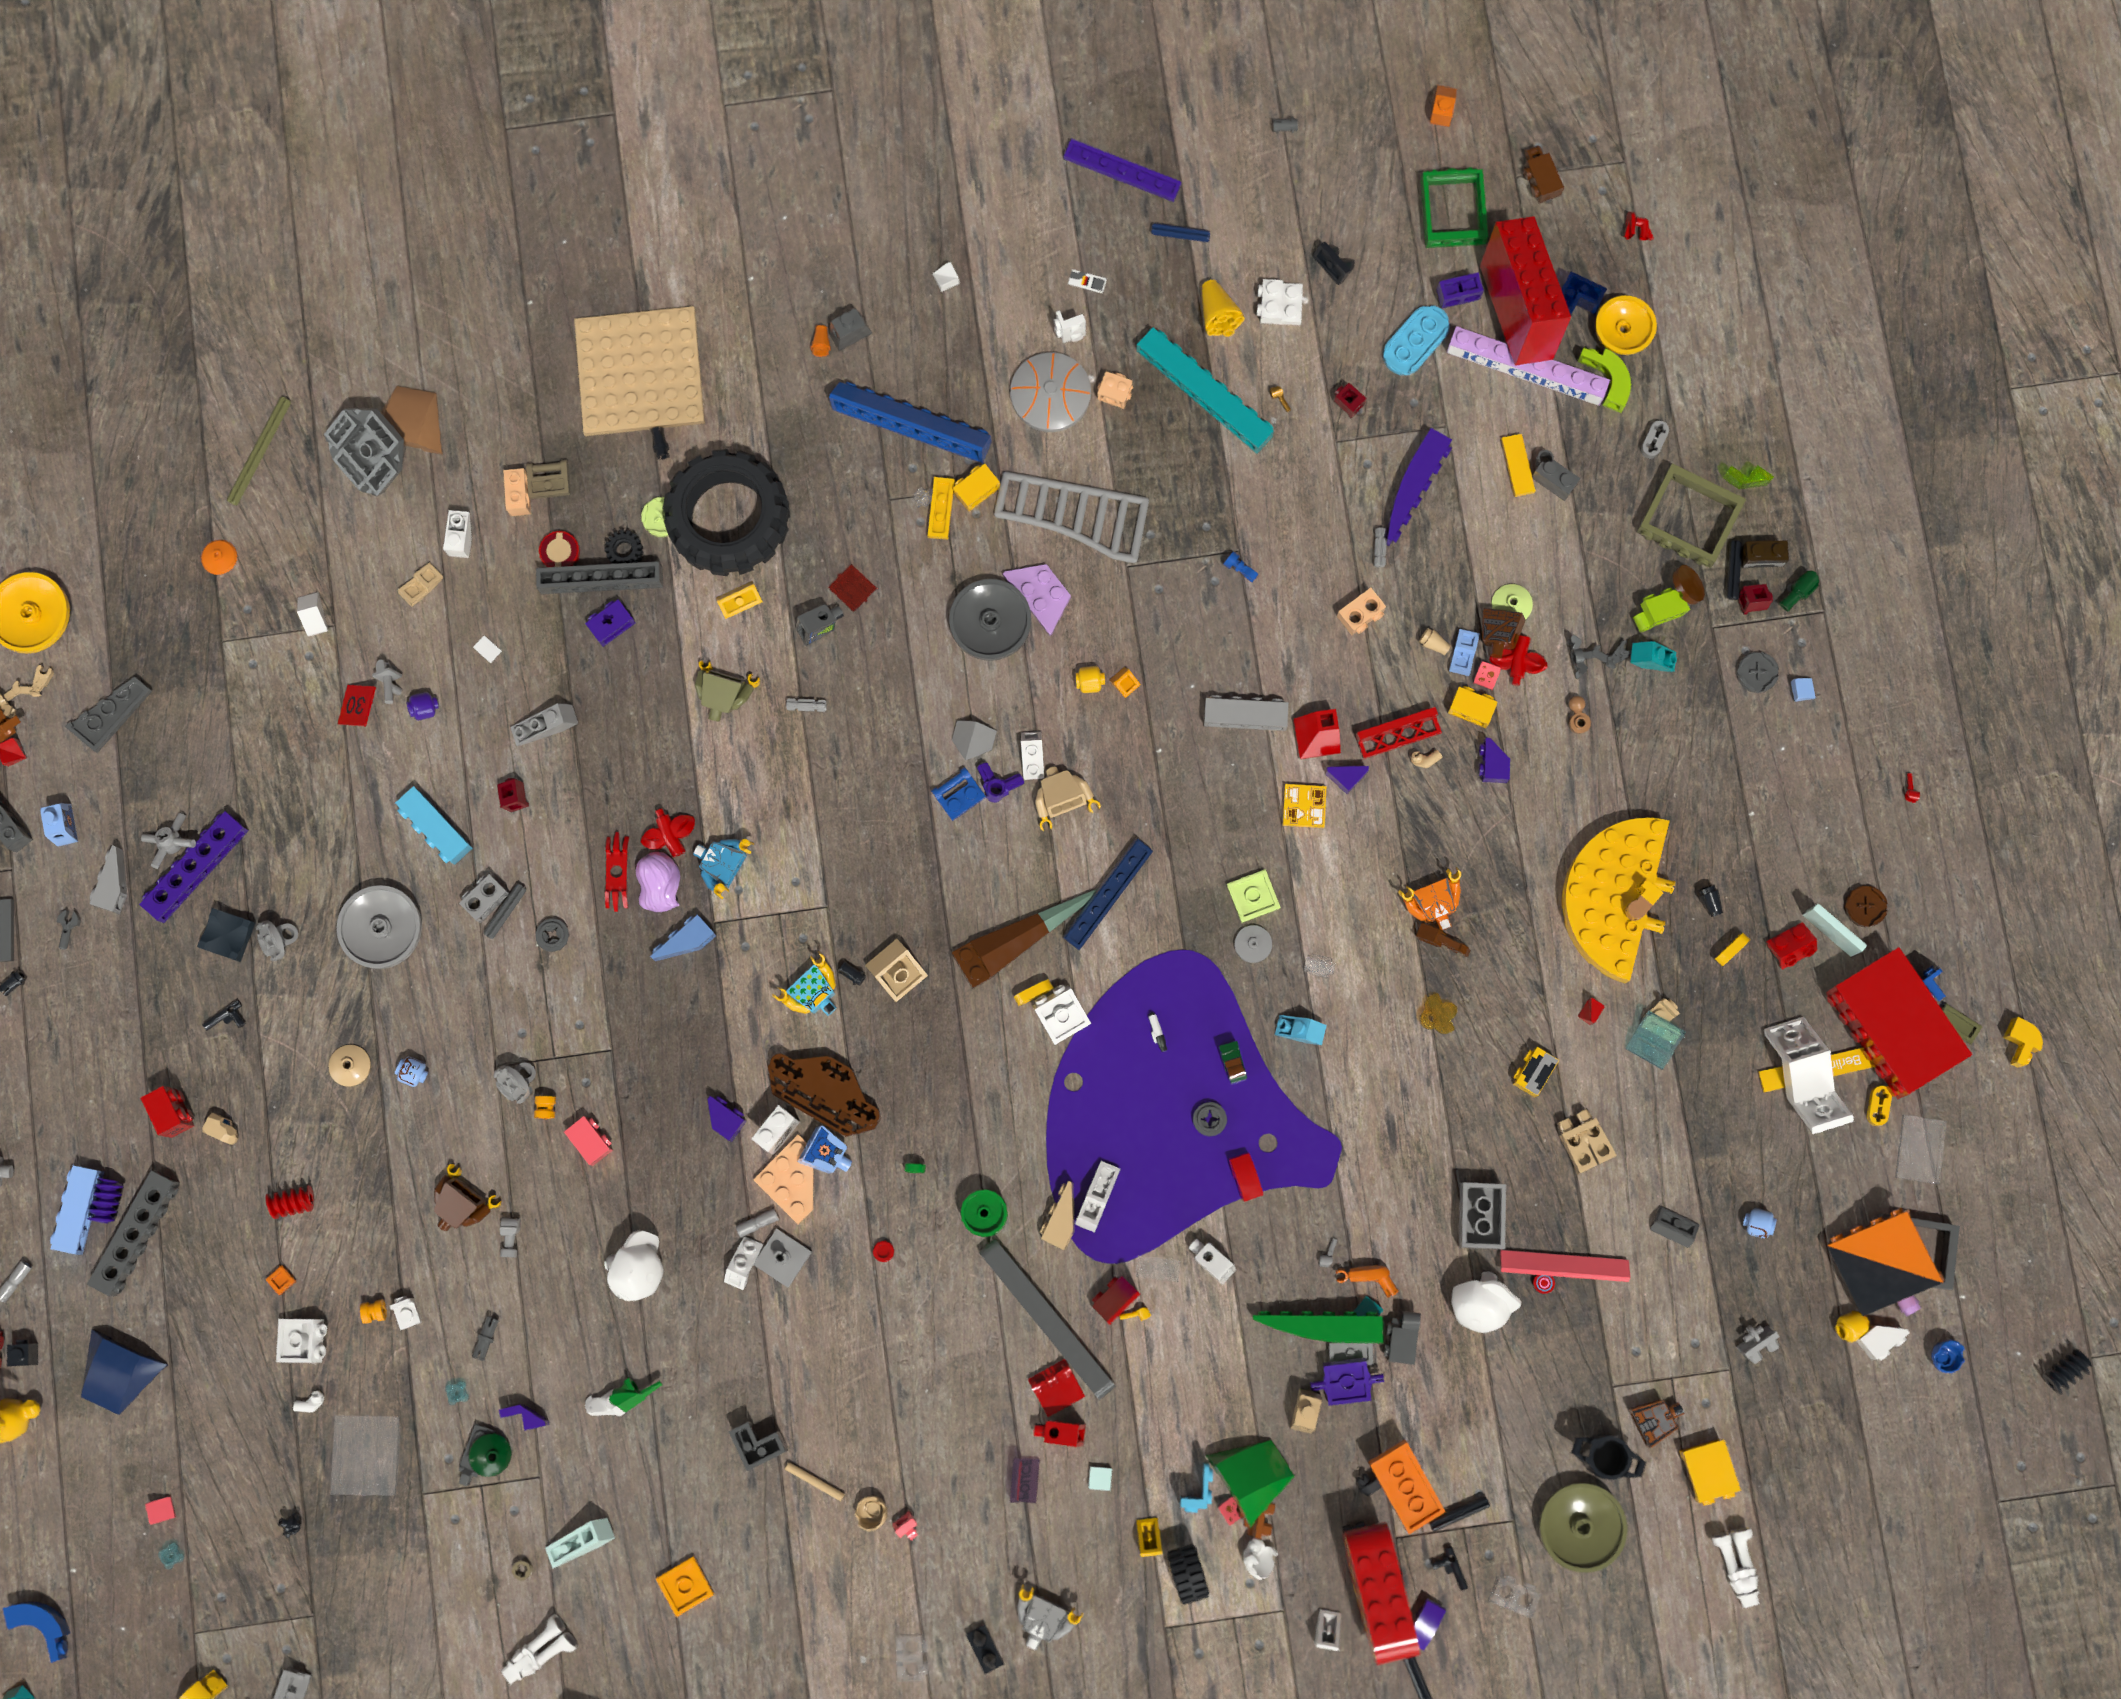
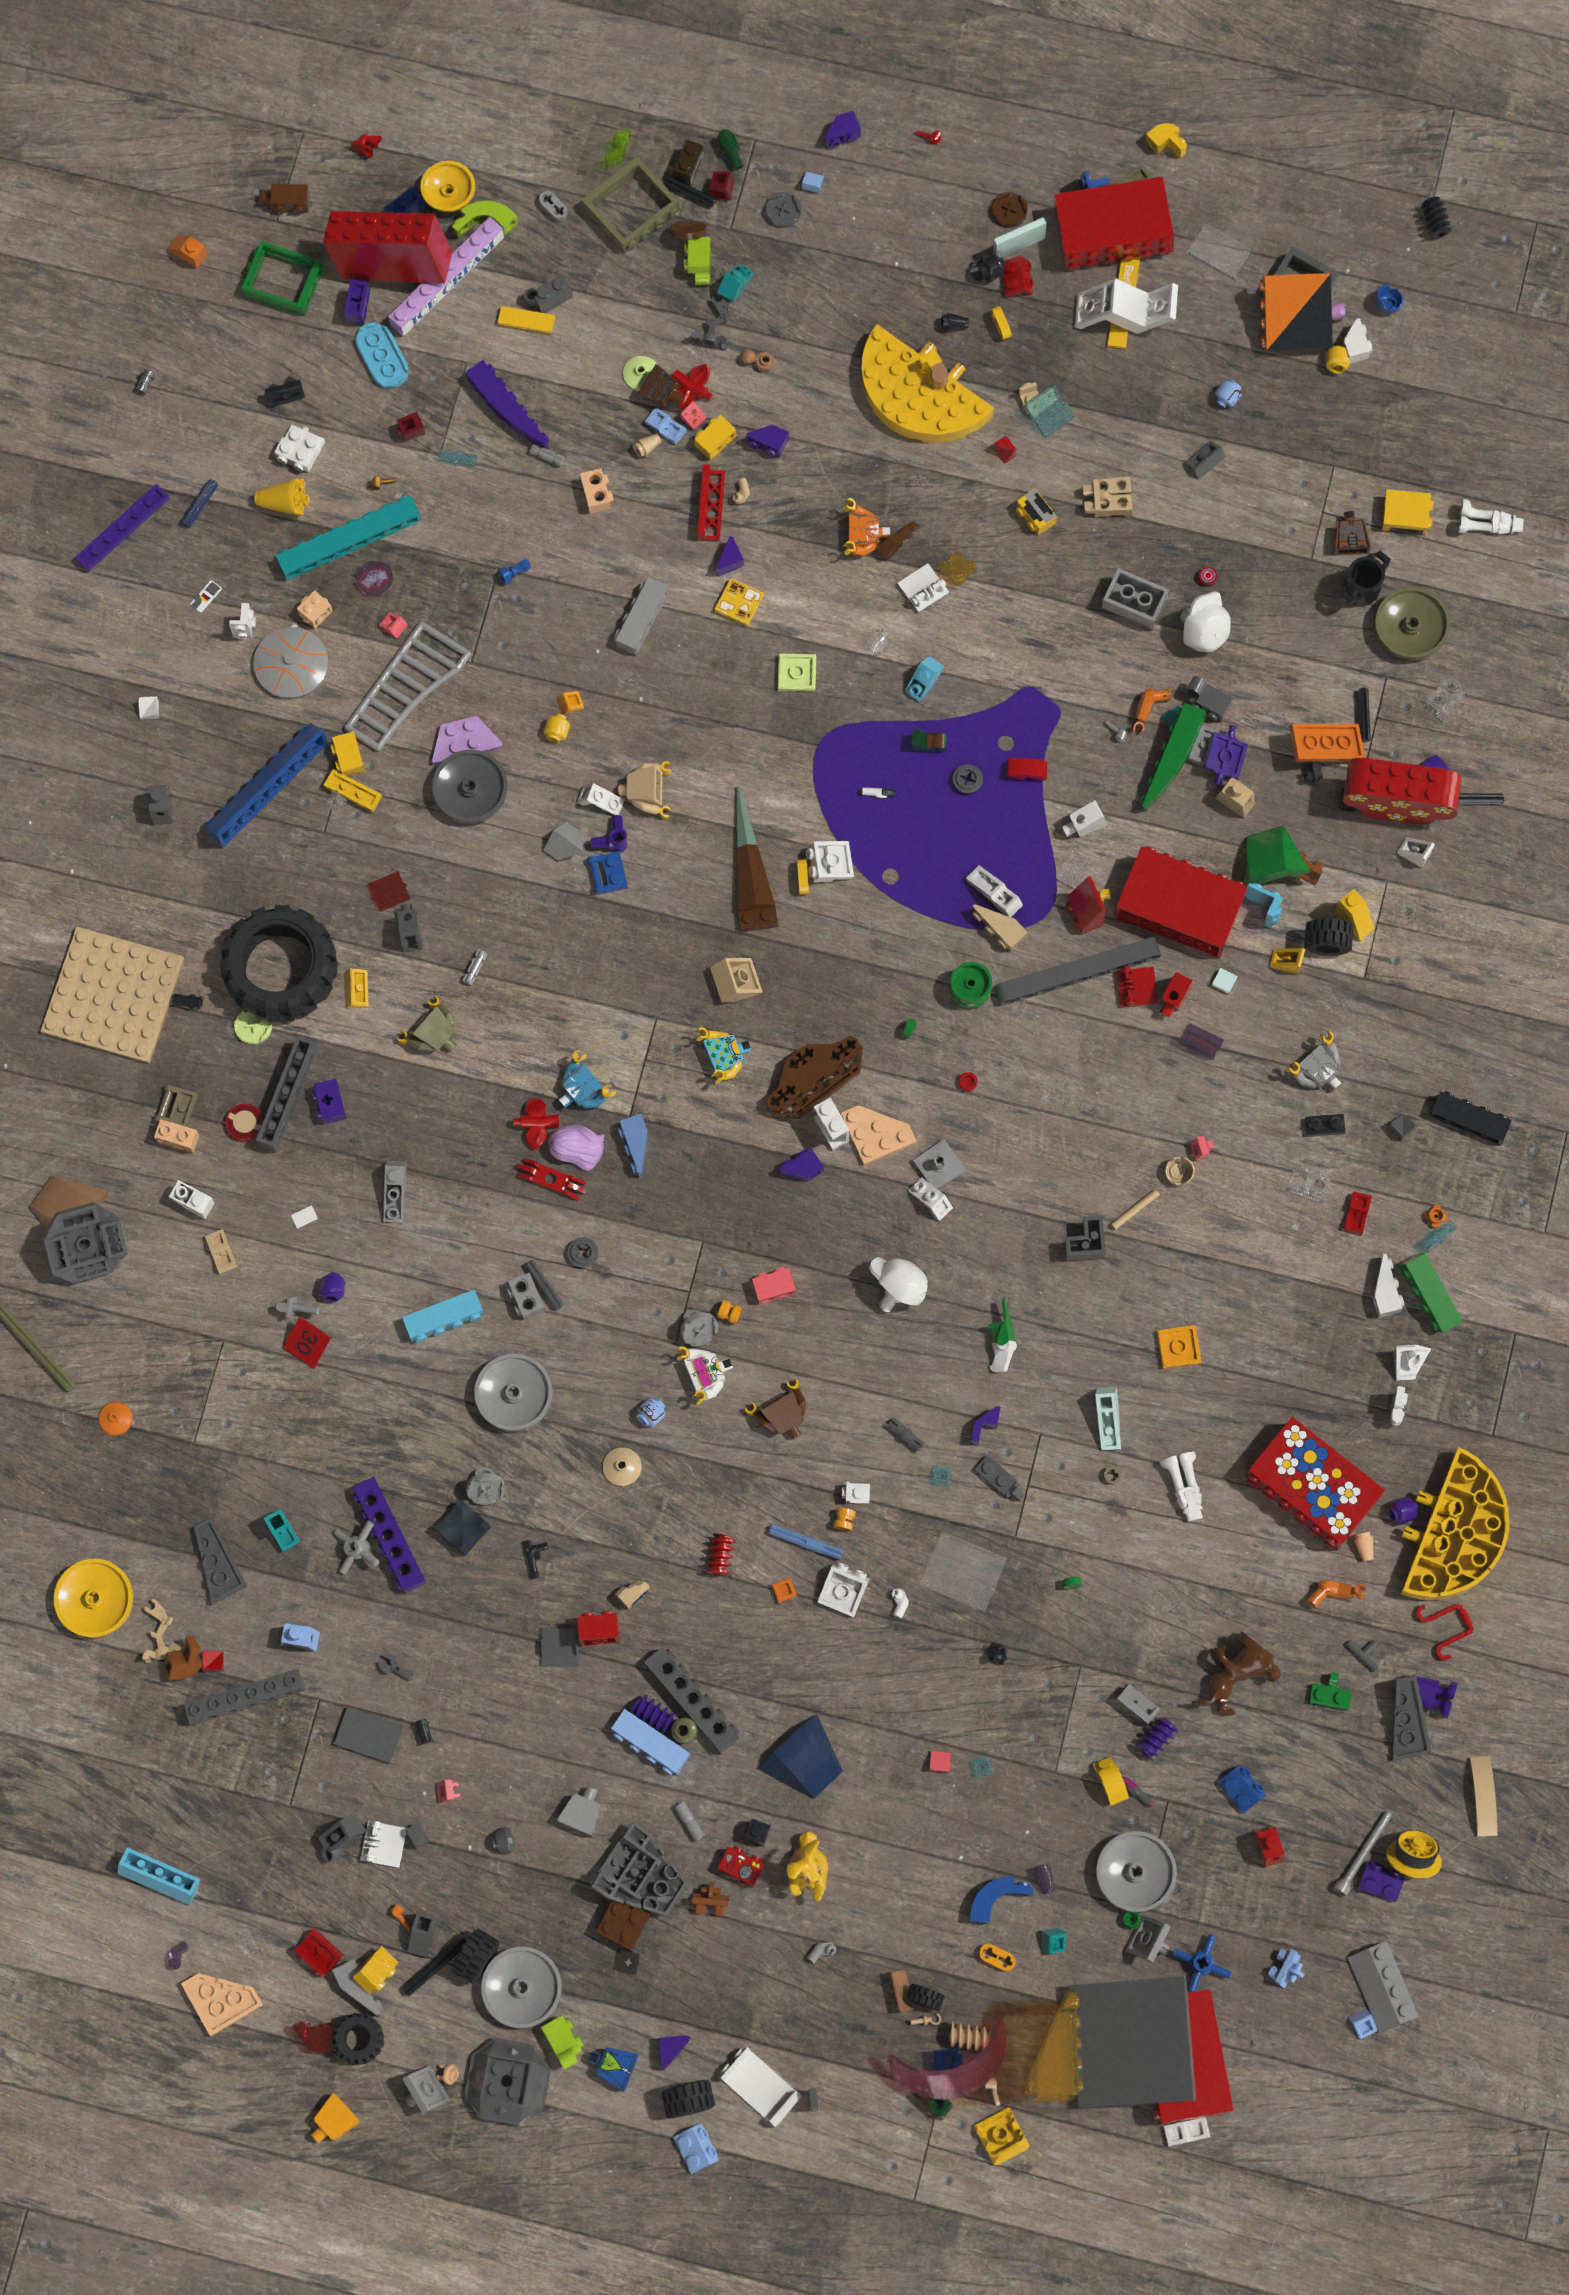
camera: 70 degrees left, 5 degrees down
(80, 1664) = (1044, 1877): none -> clear purple cone
(97, 1239) = (678, 1730): none -> olive head
(111, 885) = (375, 1612): light grey slope -> none
(144, 1077) = (559, 1647): none -> dark grey piece
(161, 759) = (281, 1529): none -> teal brick
(312, 614) = (205, 1353): white slope -> none
(337, 1282) = (806, 1542): none -> medium blue axle
(392, 1573) = (1072, 1583): none -> green tile
(472, 1108) = (704, 1372): none -> torso
(482, 1448) = (1001, 1469): dark green dish -> none
(508, 1229) = (821, 1380): light grey leg -> none
(512, 795) = (438, 1242): dark red brick -> none
(624, 537) = (261, 1058): black tyre -> none
(755, 1223) = (901, 1178): light grey piece -> none
(820, 343) = (159, 832): orange cone -> none
(824, 1152) = (865, 1094): torso -> none
(852, 974) = (723, 1017): black pin -> none
(1107, 894) = (745, 786): dark blue tile -> none
(1133, 473) = (393, 624): none -> coral slope
(1164, 1399) = (1180, 901): none -> red brick
(1174, 434) = (374, 578): none -> tile
(1225, 1593) = (1354, 910): none -> yellow slope
(1230, 1510) = (1291, 889): coral slope -> none
(1253, 944) = (836, 689): light grey piece -> none
(1259, 1558) = (1337, 881): white hair -> none
(1317, 734) = (684, 565): red slope -> none
(1338, 460) = (458, 457): none -> clear light blue pin
(1401, 988) = (923, 587): none -> white hinge
(1451, 1567) = (1403, 738): black hose -> none
(1564, 1265) = (1201, 554): coral tile -> none
(1757, 1340) = (1319, 434): light grey hips -> none
(1787, 910) = (988, 268): none -> black head
(1874, 1105) = (1172, 267): yellow beam -> none
(1875, 696) = (843, 129): none -> dark purple slope

